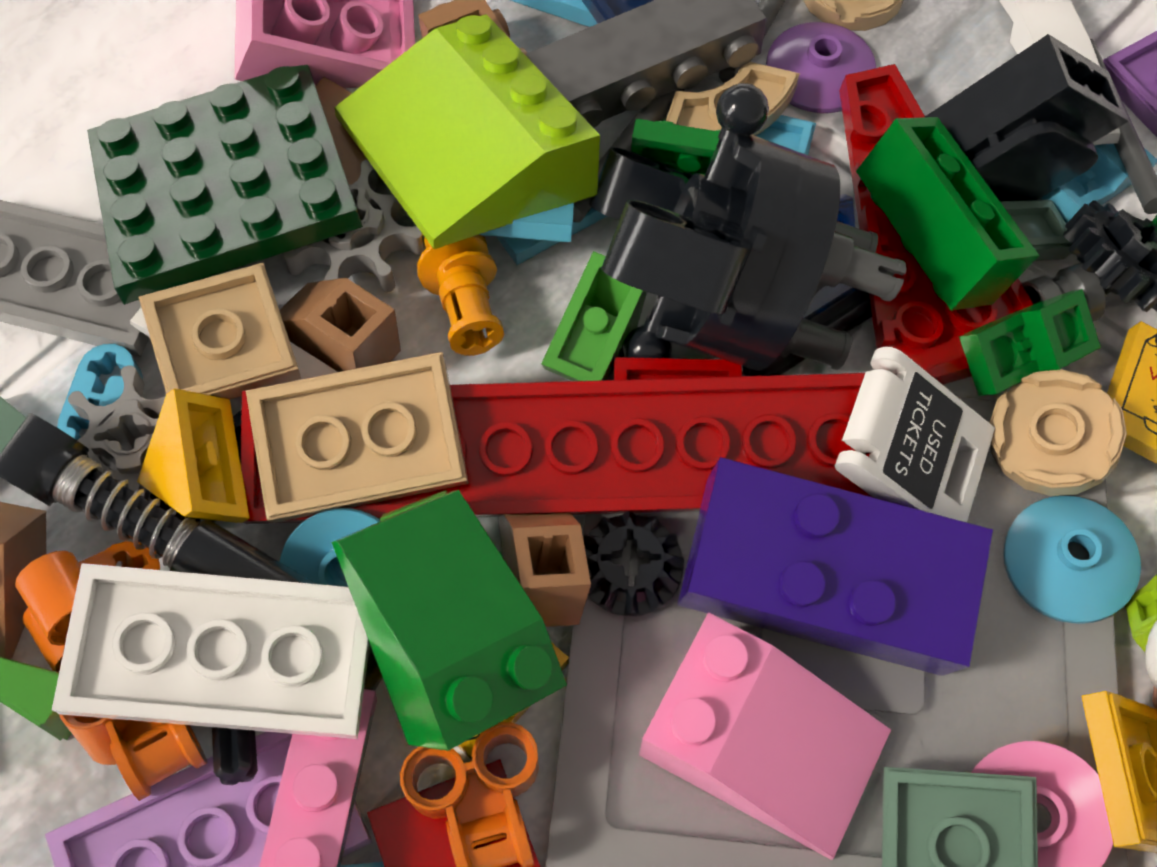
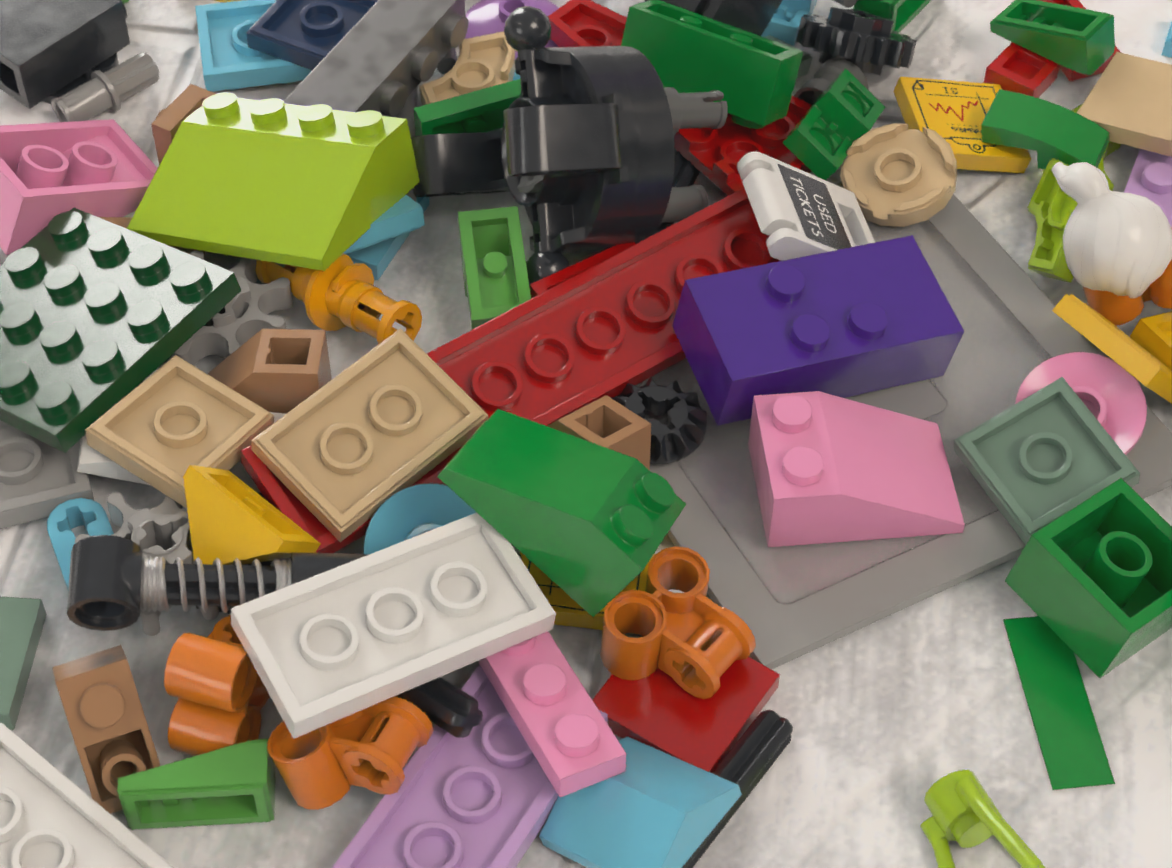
camera: 35 degrees left, 15 degrees down
(1057, 581) = (975, 253): medium azure dish -> none

